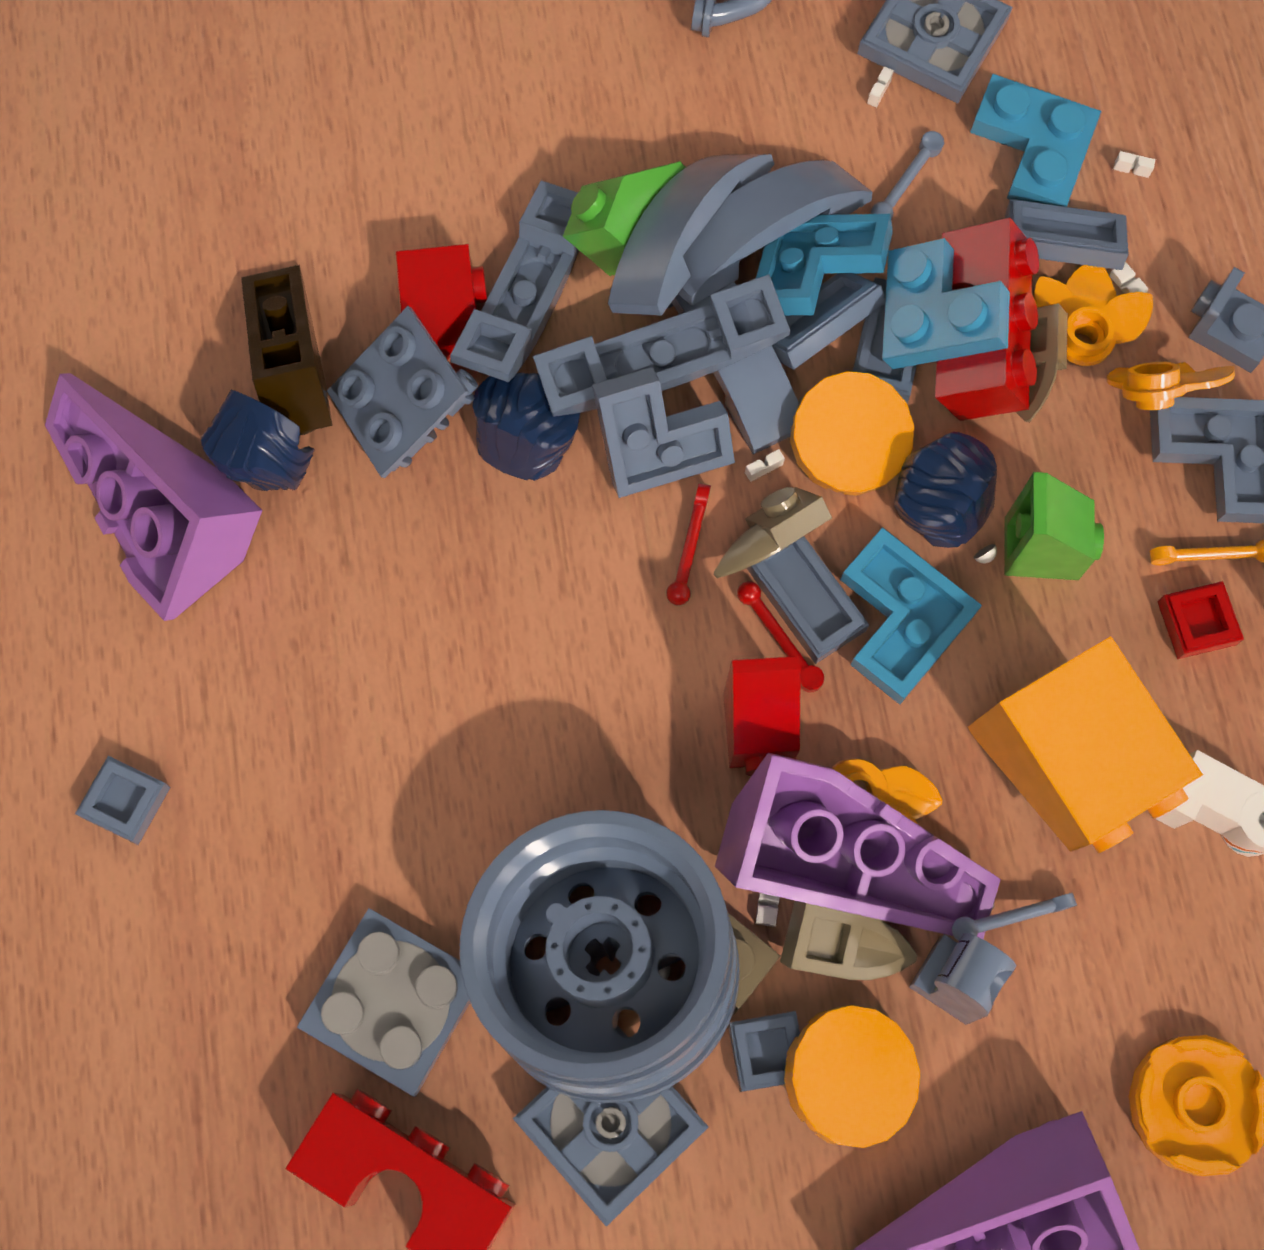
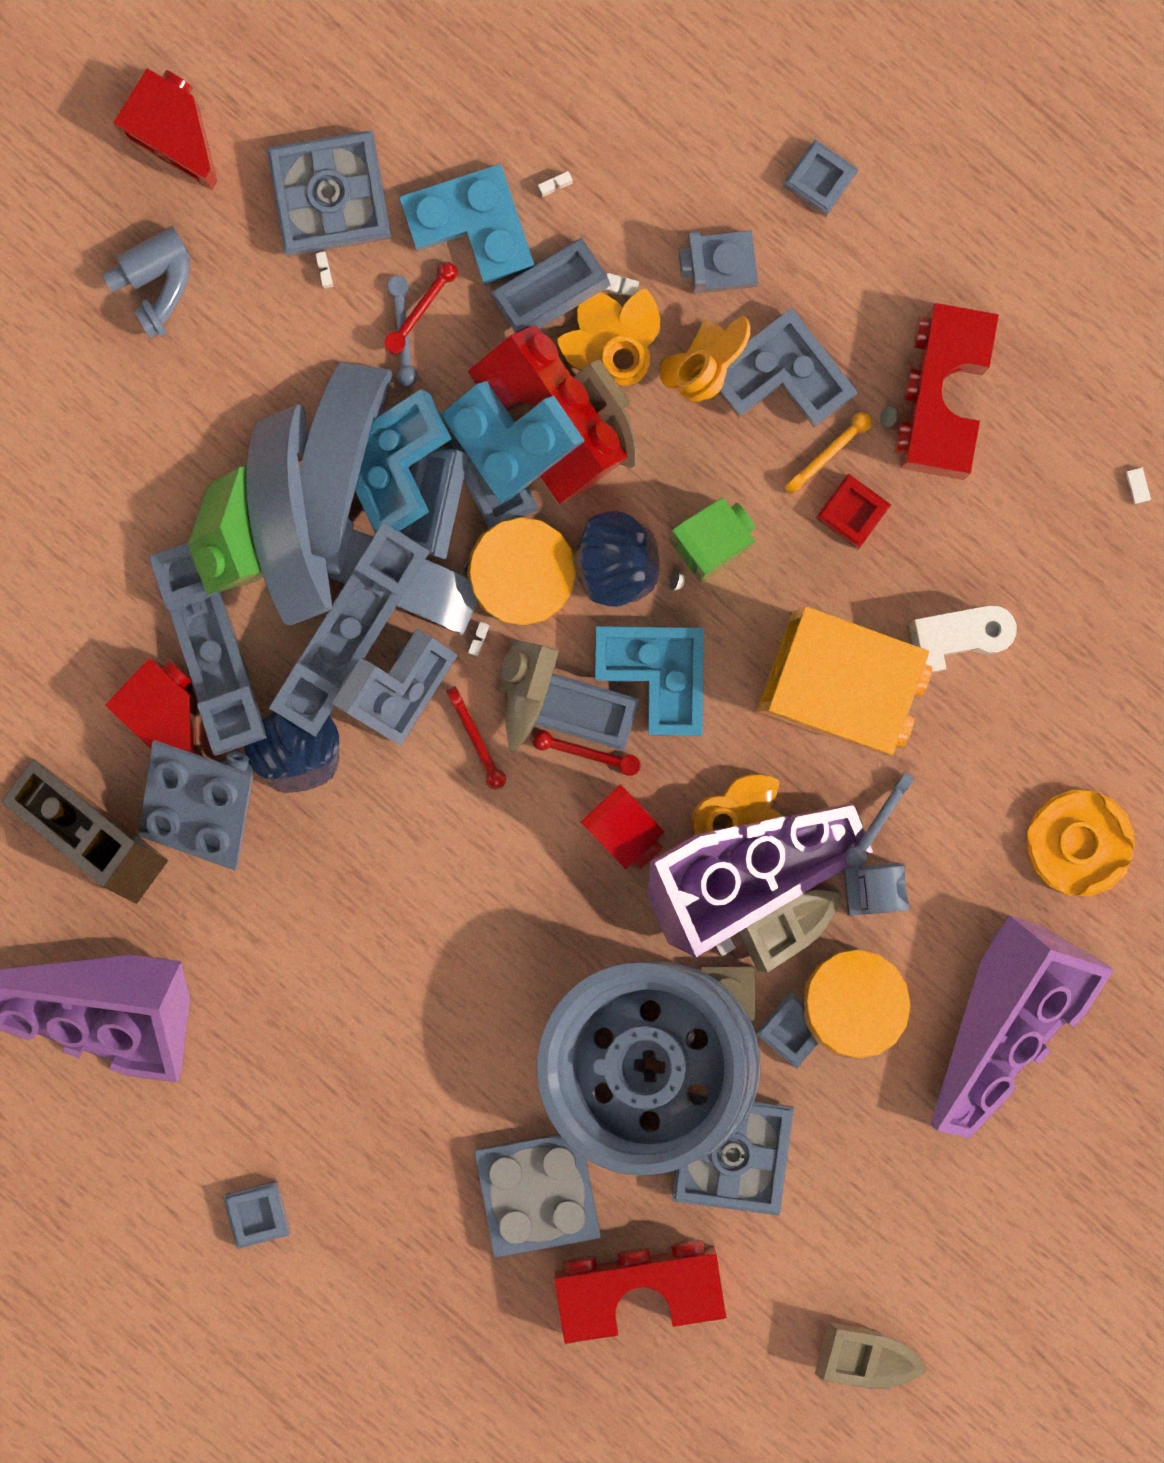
camera: 40 degrees left, 15 degrees up
(256, 445) = (133, 923): dark blue hair -> none
(896, 174) = (395, 341): none -> red hinge

